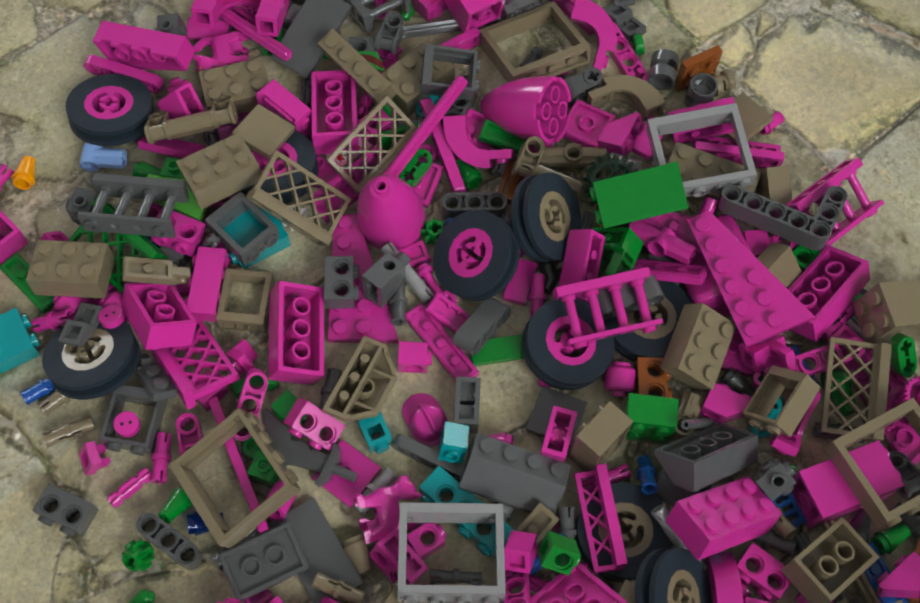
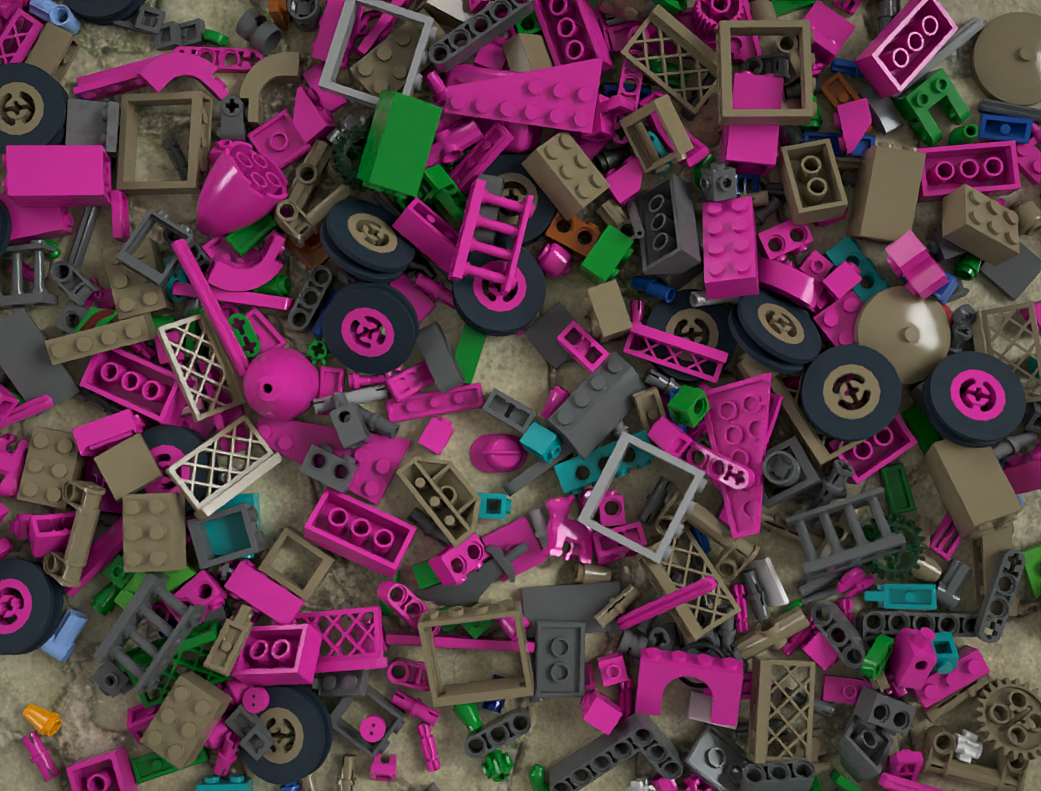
camera: 60 degrees left, 20 degrees up
(242, 357) = (354, 593): dark pink bracket -> none

